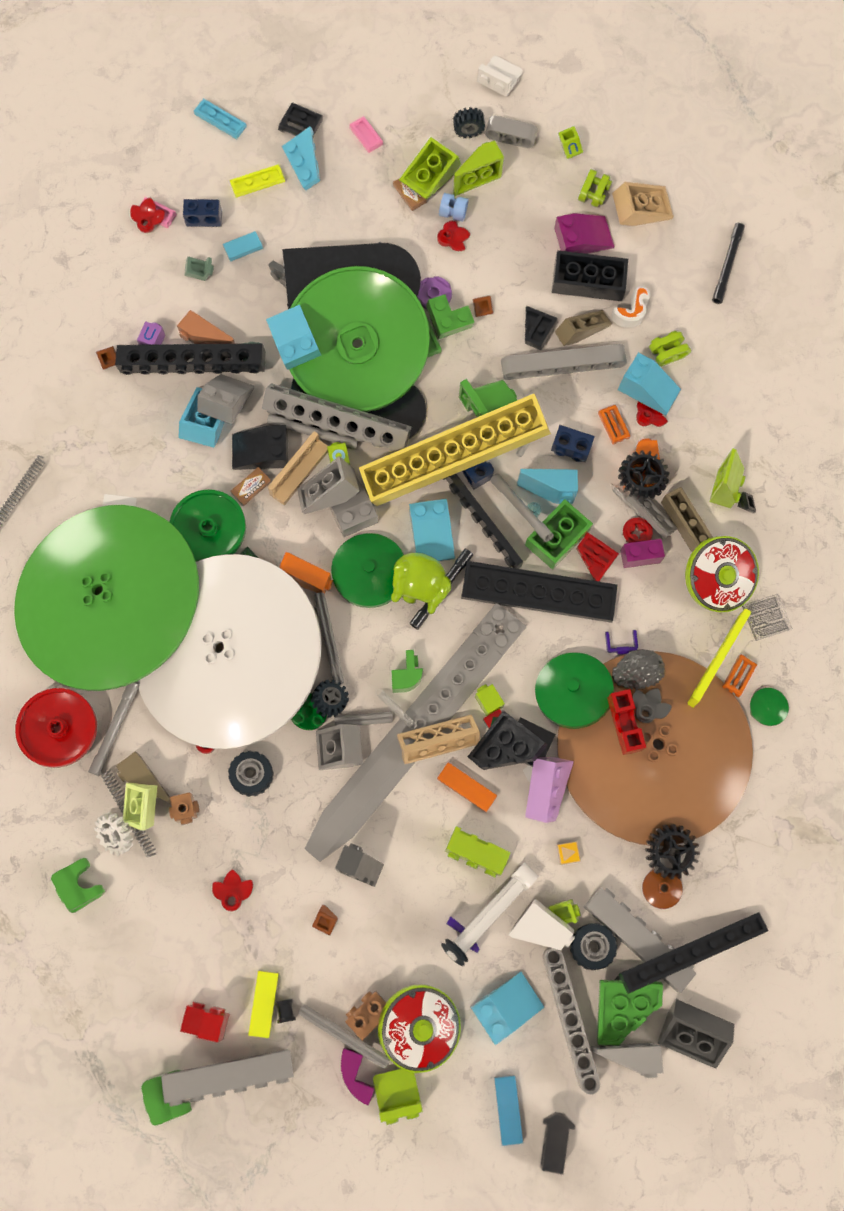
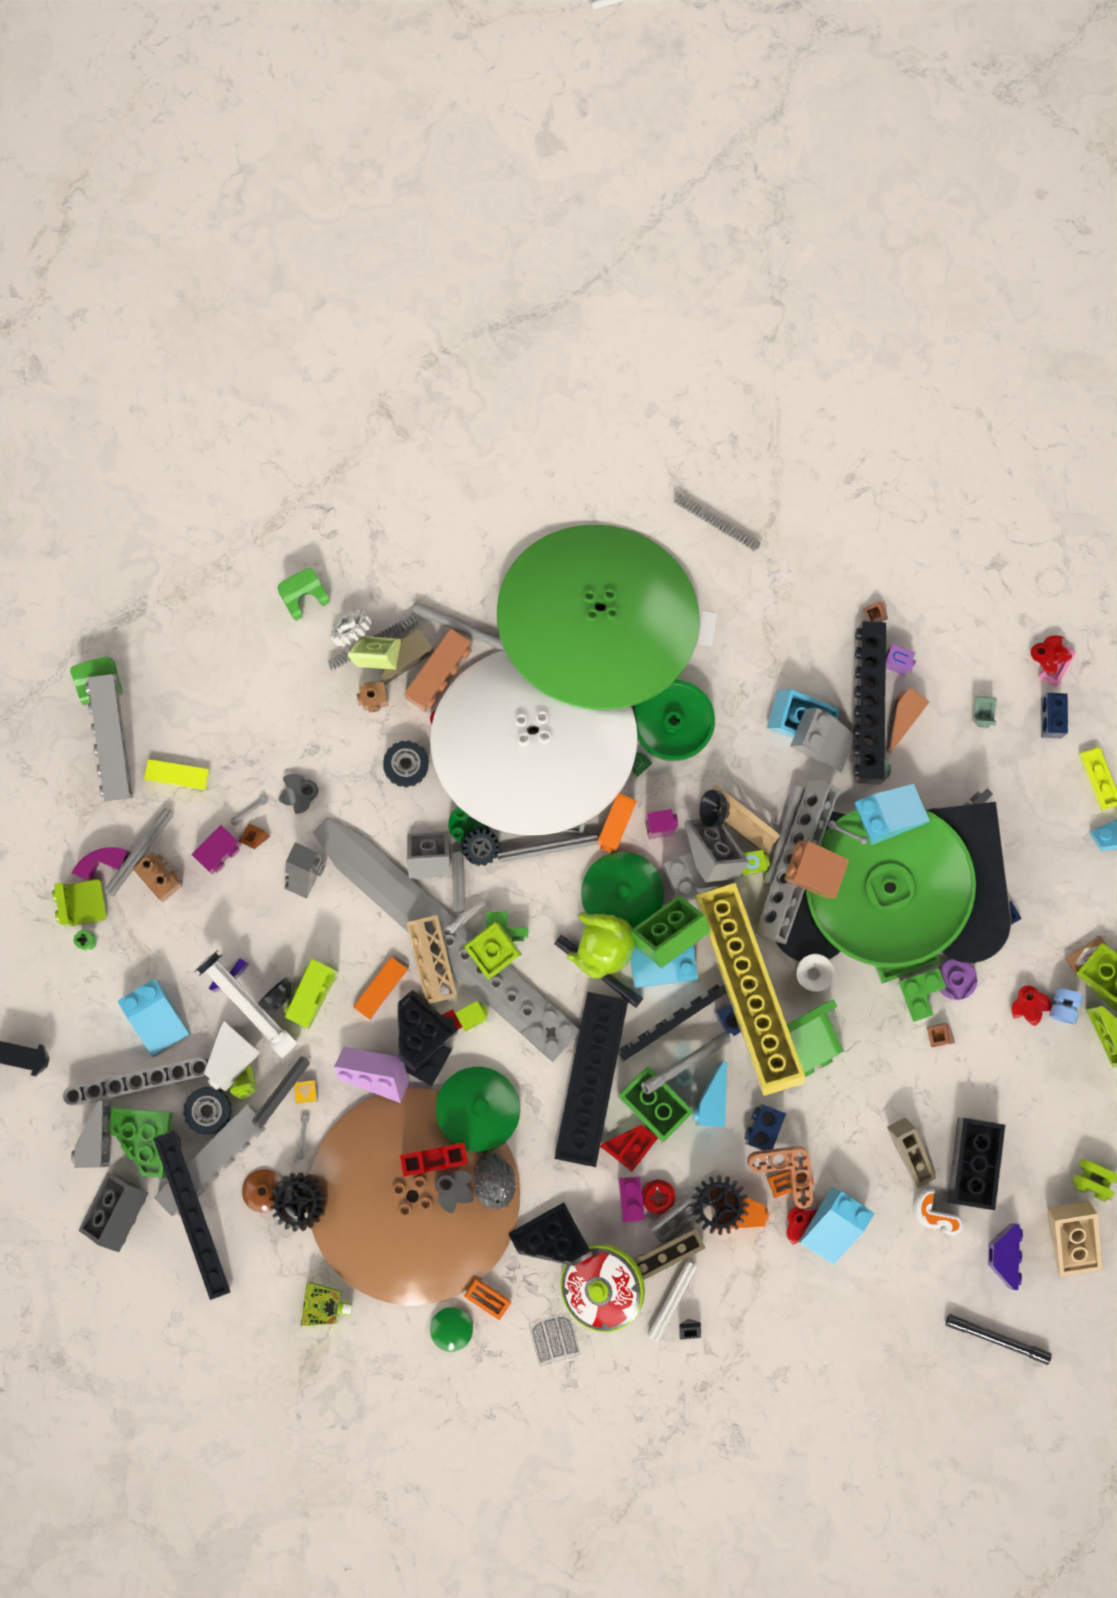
camera: 90 degrees right, 5 degrees up
(56, 727) = (461, 569): red dish -> none
(157, 746) = (438, 670): none -> nougat brick
(204, 1022) = (162, 717): red brick -> none
(232, 887) = (291, 746): red plate -> none
(242, 246) = (1014, 761): medium azure tile -> none
(250, 486) = (722, 767): tile -> none
(260, 447) = (765, 778): black slope -> none
(282, 881) = (295, 793): none -> dark grey plate
(285, 1011) = (168, 795): black bush -> none
(288, 914) = (262, 800): none -> light grey hinge
(291, 493) = (710, 808): none -> black piece
(303, 388) = (832, 825): none -> light grey hinge
(305, 534) = (661, 824): none -> magenta brick
(339, 956) = (216, 850): none -> magenta brick
(345, 396) = (816, 869): none -> nougat brick
(406, 519) = (670, 931): none -> bright green brick
(419, 1028) = (140, 926): dish -> none
(428, 681) = (492, 950): none -> lime tile
(435, 396) = (825, 969): none -> white piece
(440, 1090) = (89, 945): none -> bright green bush
(480, 885) = (277, 995): none -> black piece
(508, 1110) = (56, 1013): dark azure tile -> none
(538, 327) = (911, 1098): black wing -> none
(563, 361) = (867, 1126): light grey beam -> none
(572, 874) = (280, 1092): none -> dark grey axle
(583, 233) = (1034, 1162): magenta slope -> none
(593, 852) = (304, 1119): none -> light grey hinge
(603, 419) = (788, 1163): none -> nougat beam
(621, 650) = (522, 1169): dark purple piece -> none
(661, 255) = (1005, 1255): none -> dark purple slope
(672, 340) = (895, 1260): lime brick -> none
(683, 618) = (552, 1238): none -> black plate
(718, 658) = (506, 1274): neon yellow tile -> none
(726, 519) = (672, 1301): none -> white axle
(728, 481) = (713, 1307): lime slope -> none
(762, 823) = (323, 1305): none -> torso

